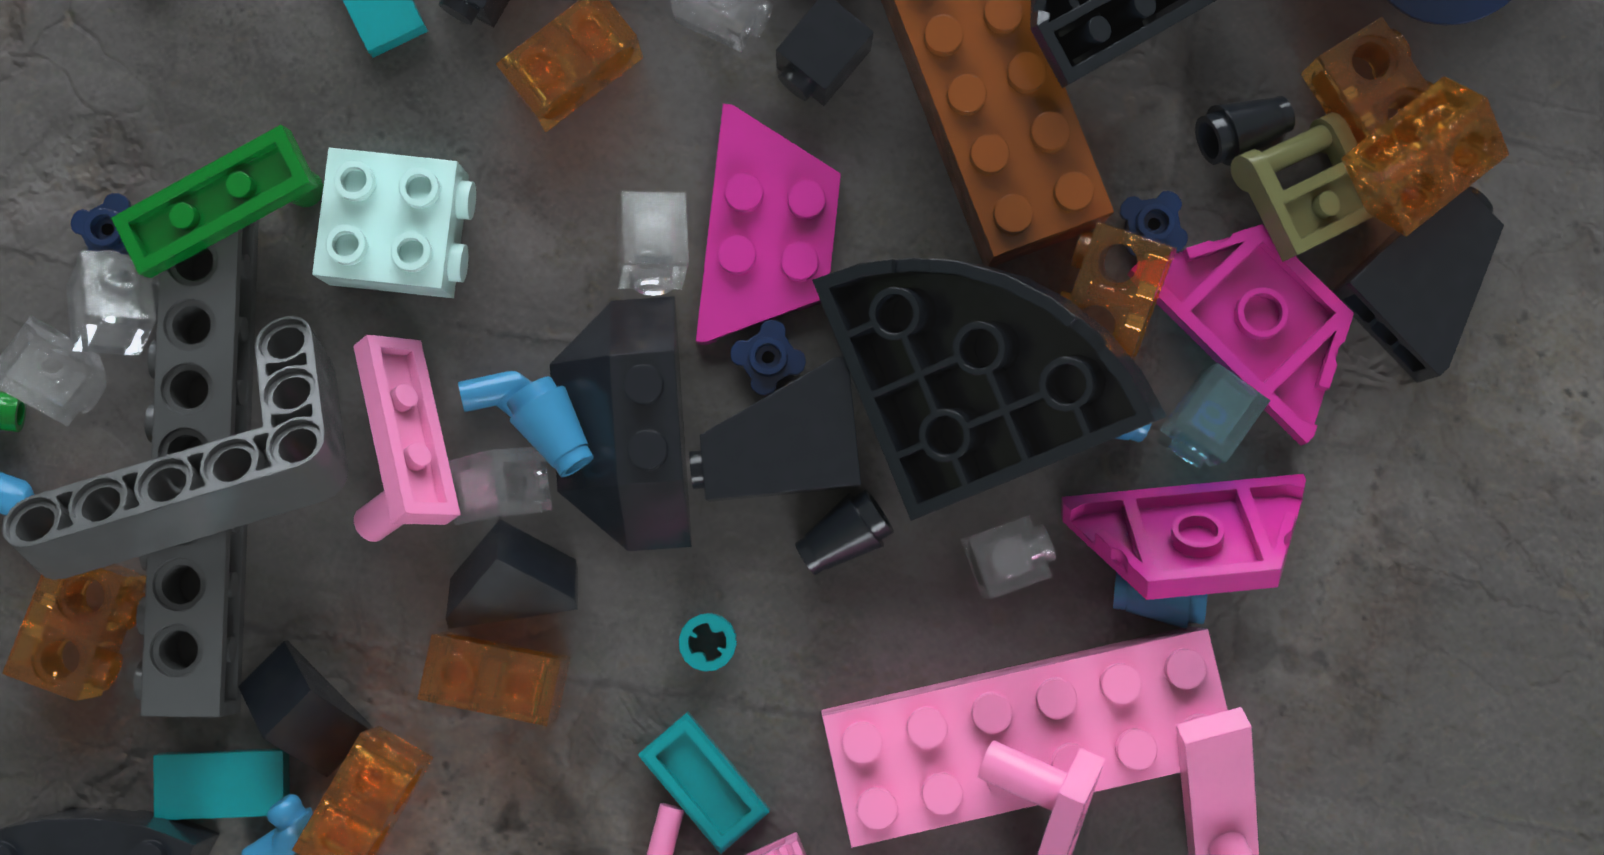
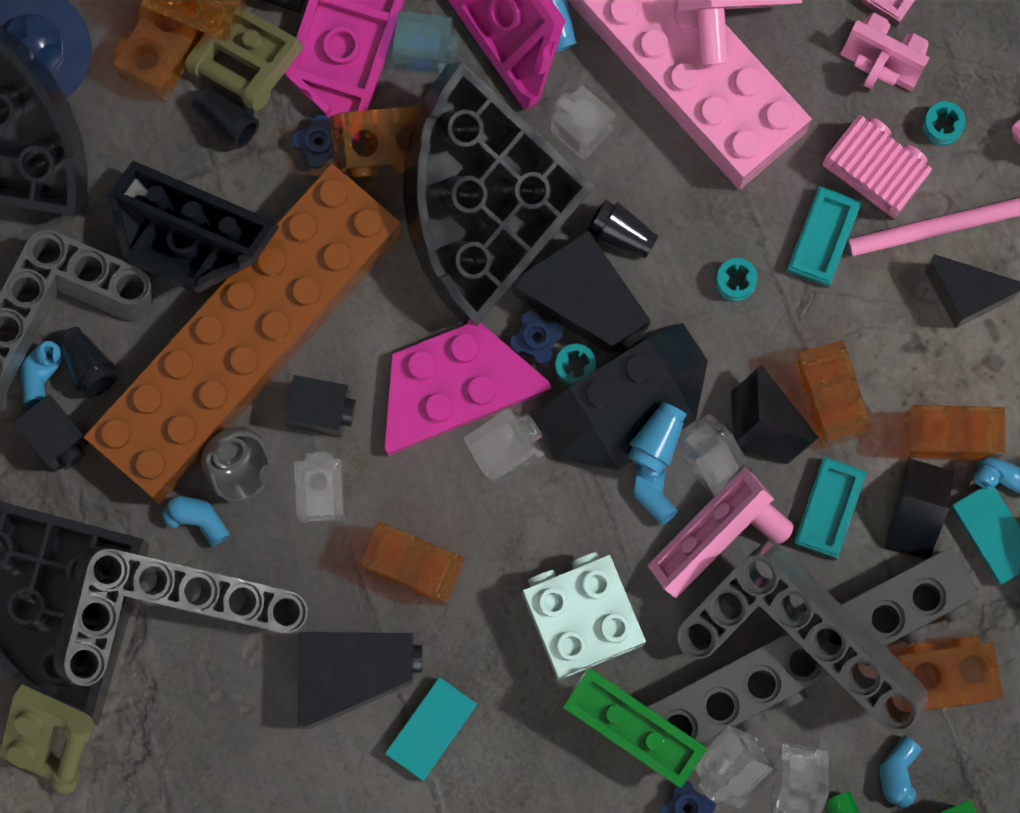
camera: 115 degrees left, 5 degrees down
(367, 599) = (829, 508): none -> teal tile
(724, 375) = (562, 361): none -> teal bush

